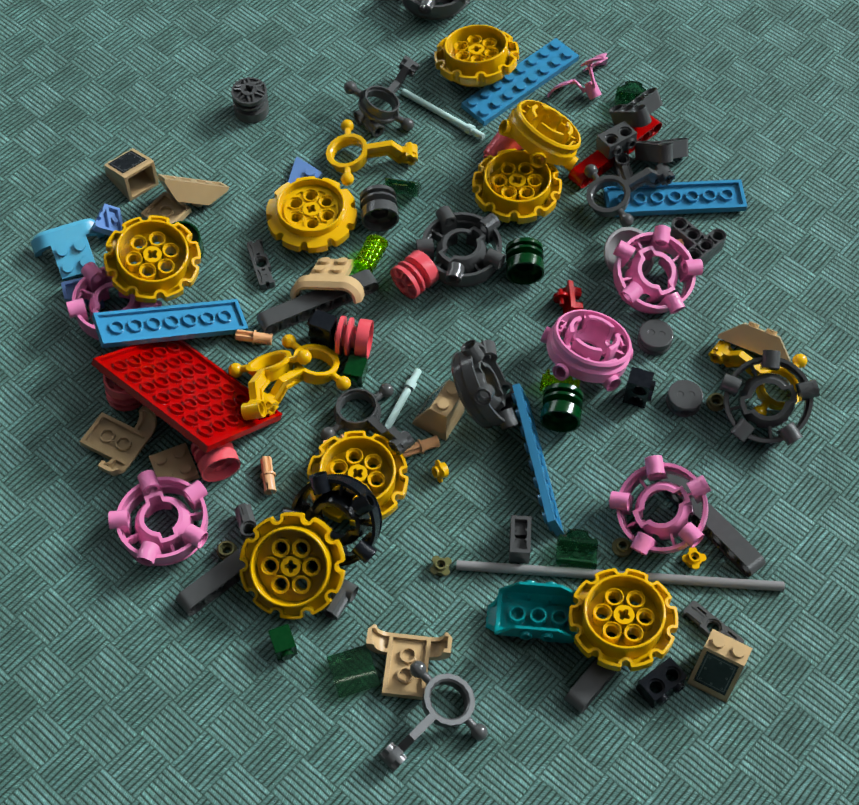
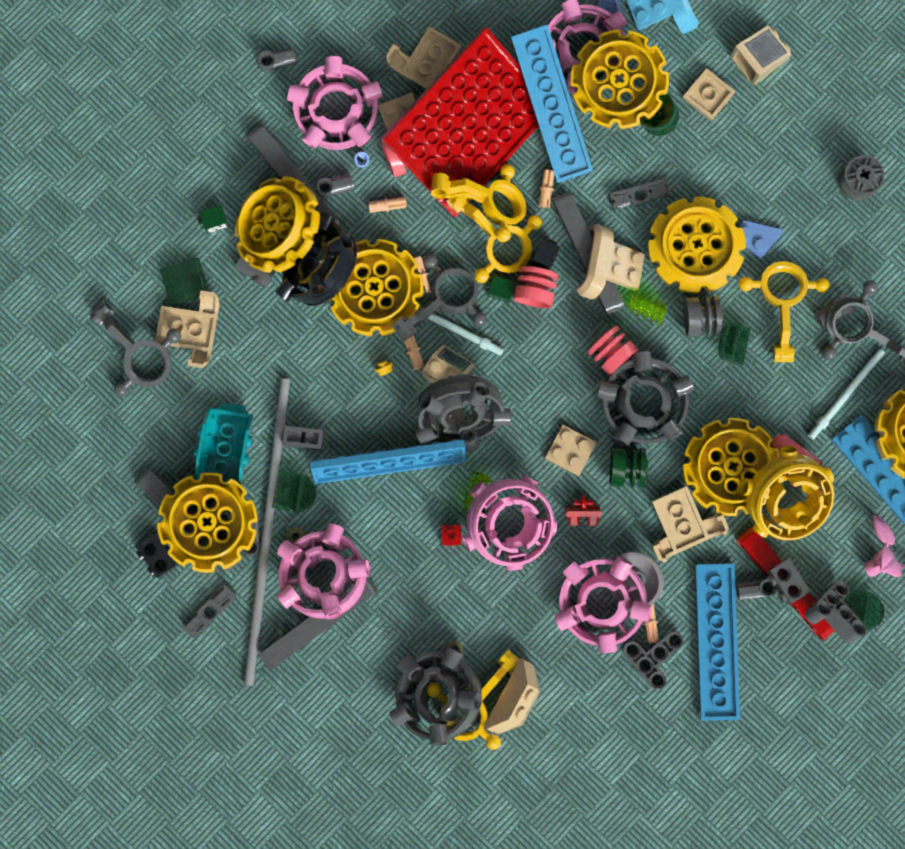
camera: 90 degrees right, 25 degrees up
(104, 586) = (279, 59): none -> dark grey piece
(108, 220) = (694, 36): medium blue wing -> none
(192, 190) = (733, 118): tan wedge -> none
(216, 498) = (362, 155): none -> light blue hinge
(225, 545) = (309, 162): olive plate -> none
(440, 571) = (284, 369): olive plate -> none
(510, 313) = (570, 450): none -> tan plate
(562, 407) = (445, 490): dark green wheel -> none
(571, 223) = (683, 524): none -> tan piece
(605, 404) = (451, 535): none -> red brick
(639, 387) = (465, 570): black brick -> none
(648, 176) = (739, 628): dark grey piece -> none
(655, 337) = (533, 597): dark grey head -> none
(661, 151) = (776, 631): dark grey beam -> none
(684, 398) = (457, 618): dark grey head -> none
(690, 562) = (275, 604): yellow plate -> none
(719, 665) = (165, 609): slope -> none

